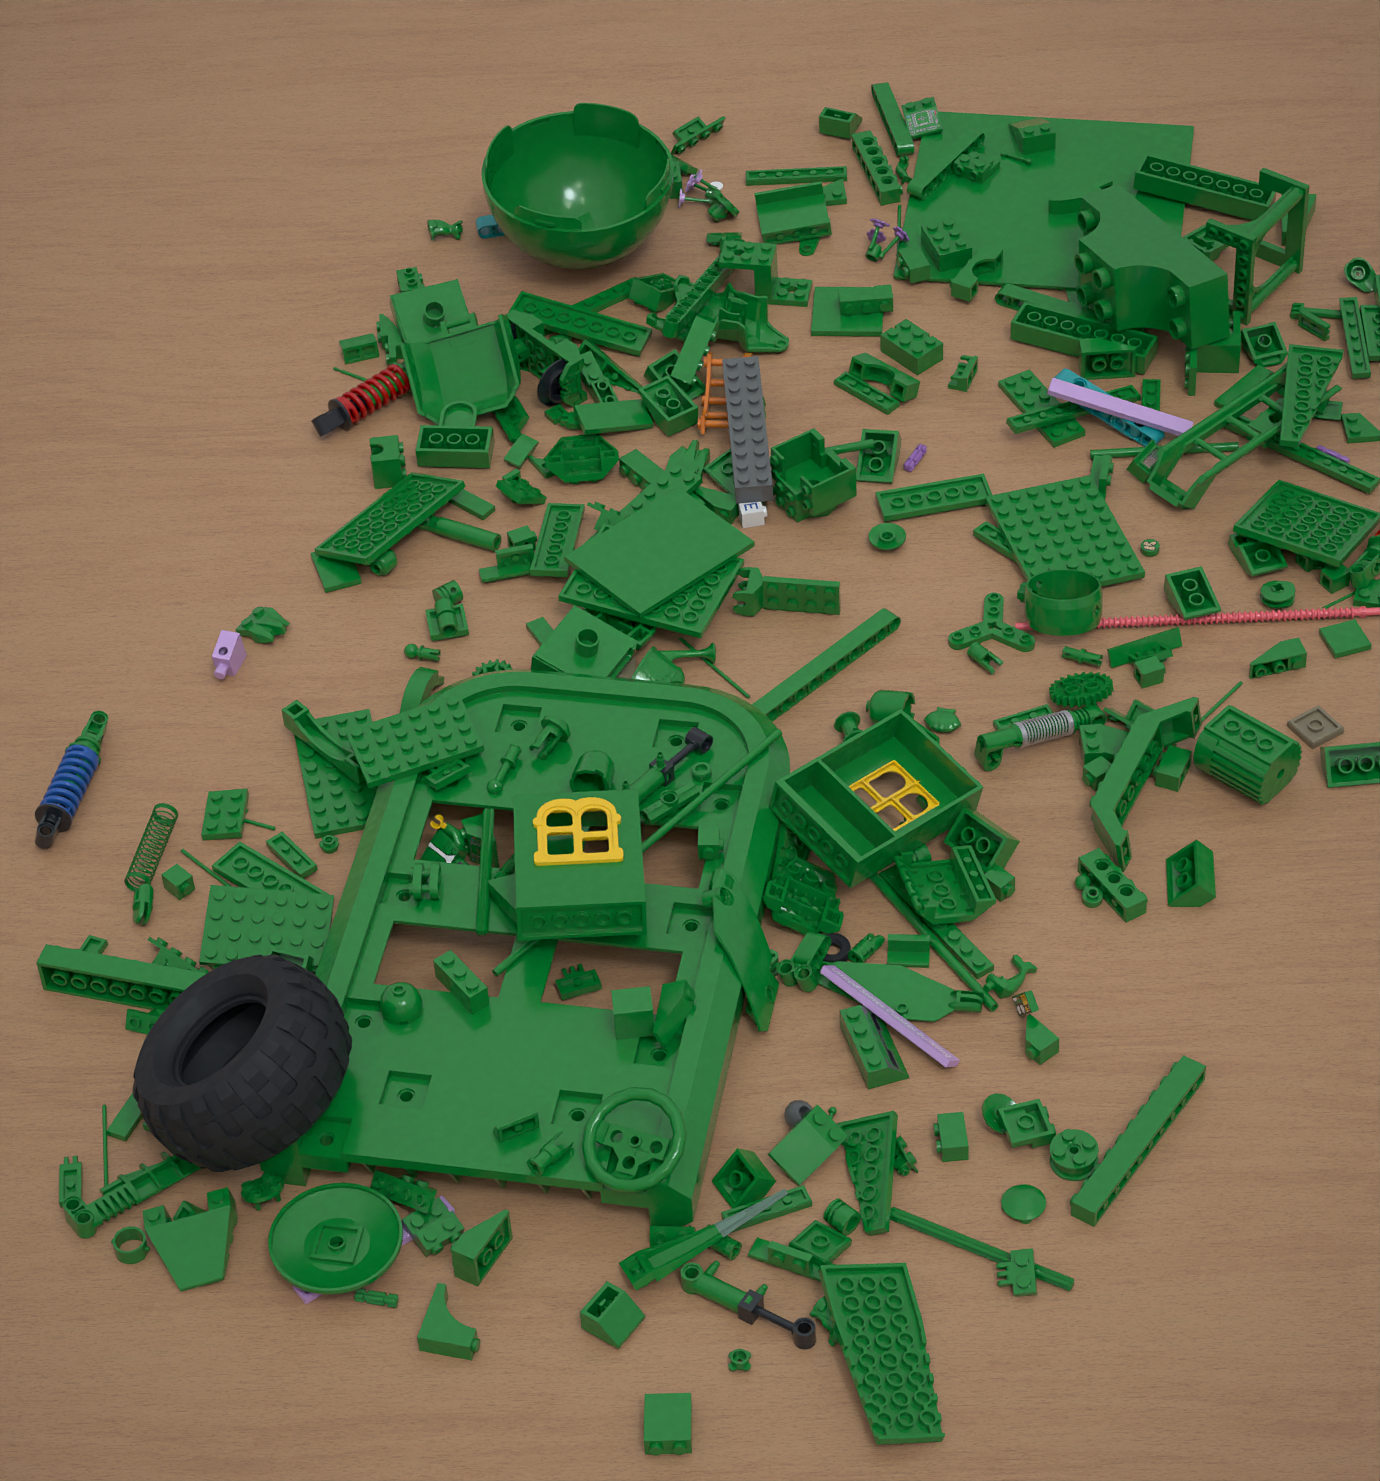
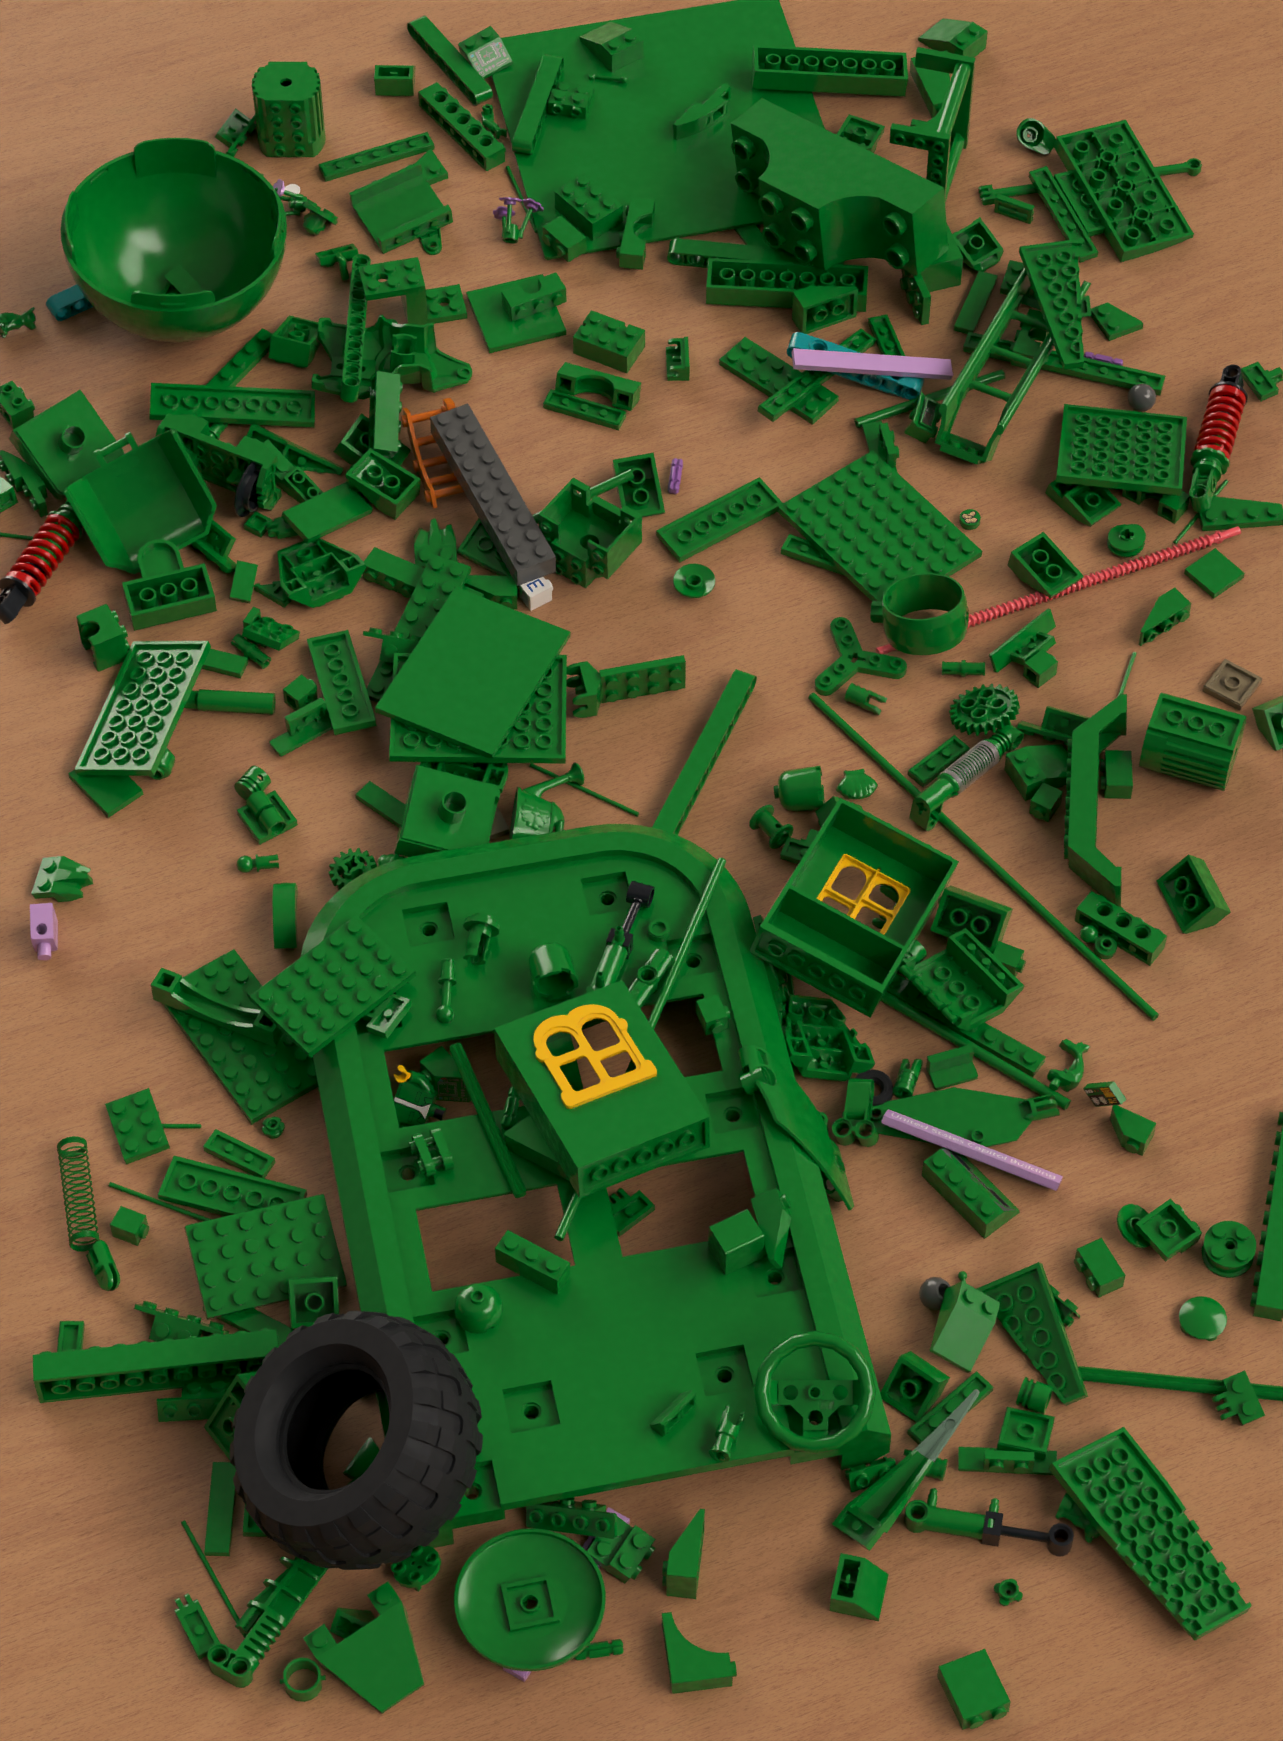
camera: 25 degrees left, 10 degrees up
(500, 502) = (251, 651): none -> green pin
(734, 122) = (288, 110): none -> green piece
(1029, 811) = (984, 857): none -> green piece
(1334, 191) = (956, 37): none -> green slope
(1349, 489) = (1141, 397): none -> dark grey piece

